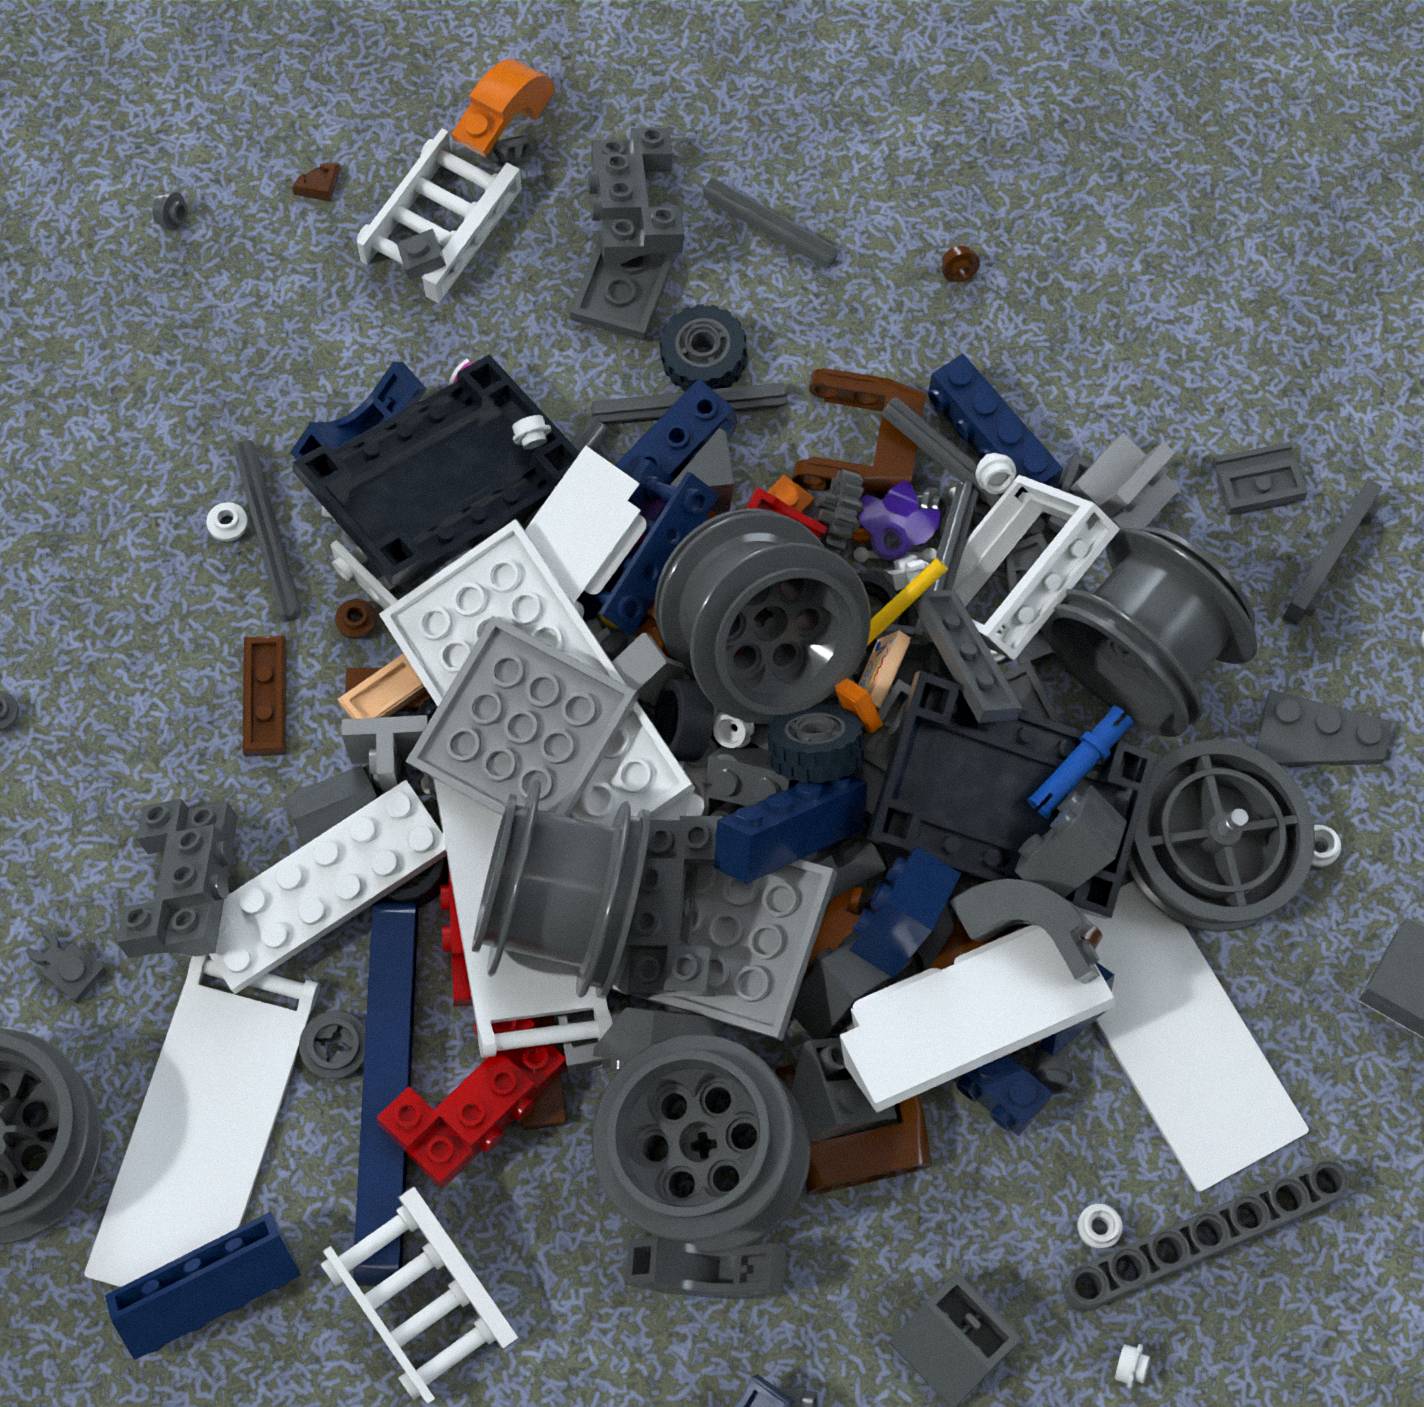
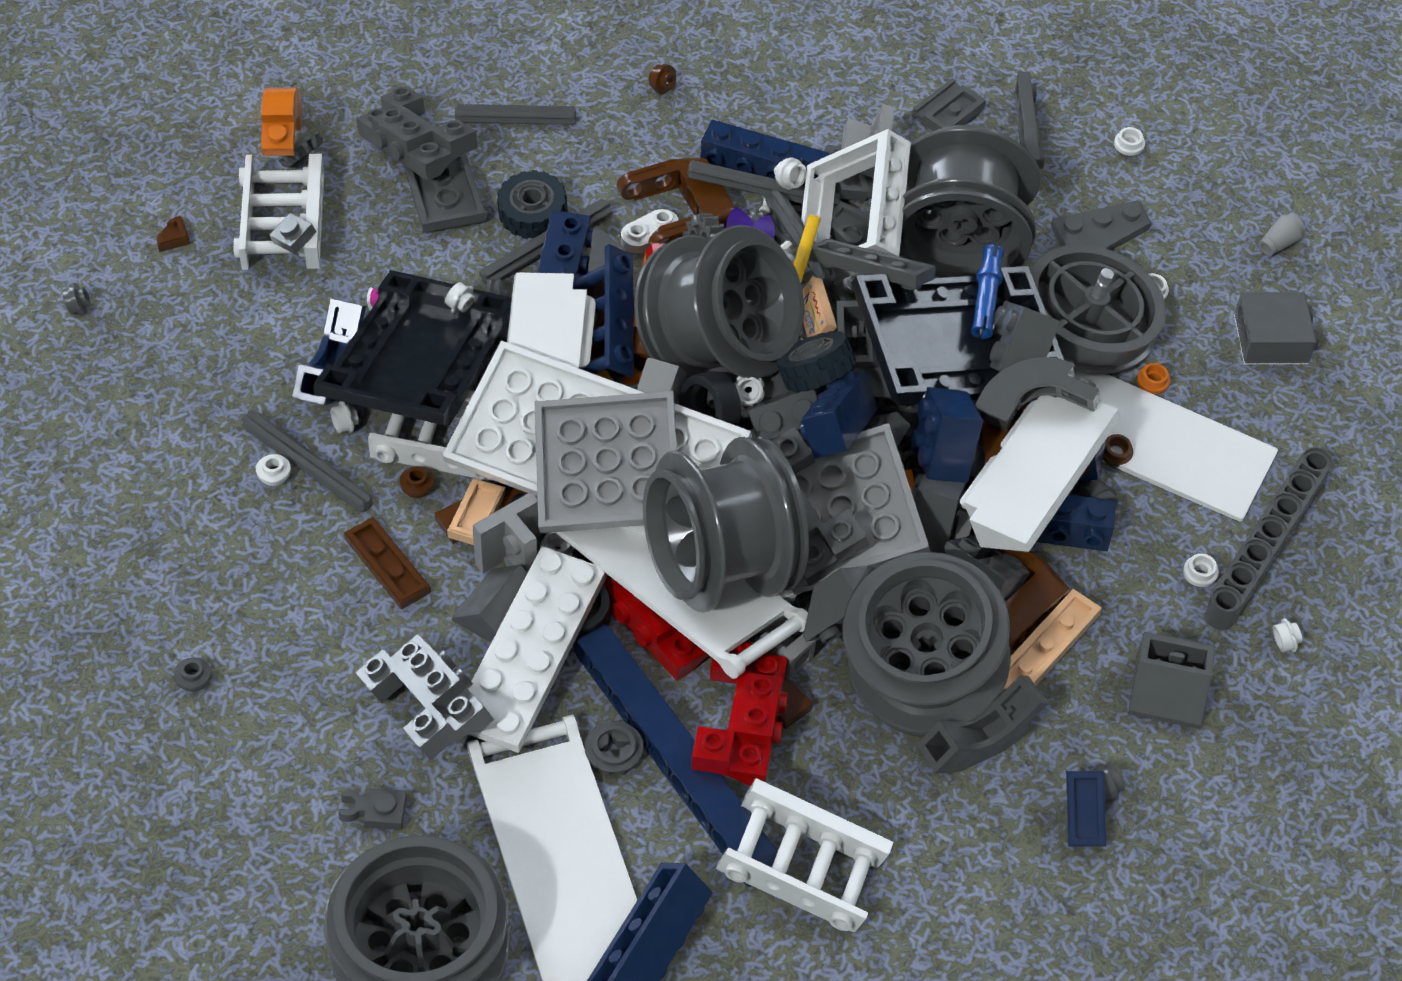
camera: 35 degrees left, 15 degrees down
(808, 444) = (637, 233): none -> white plate
(860, 703) = (823, 322): orange tile -> none
(862, 1209) = (1053, 638): none -> light nougat plate
(1122, 1037) = (1117, 459): none -> reddish brown plate
(1237, 949) = (1156, 372): none -> orange plate

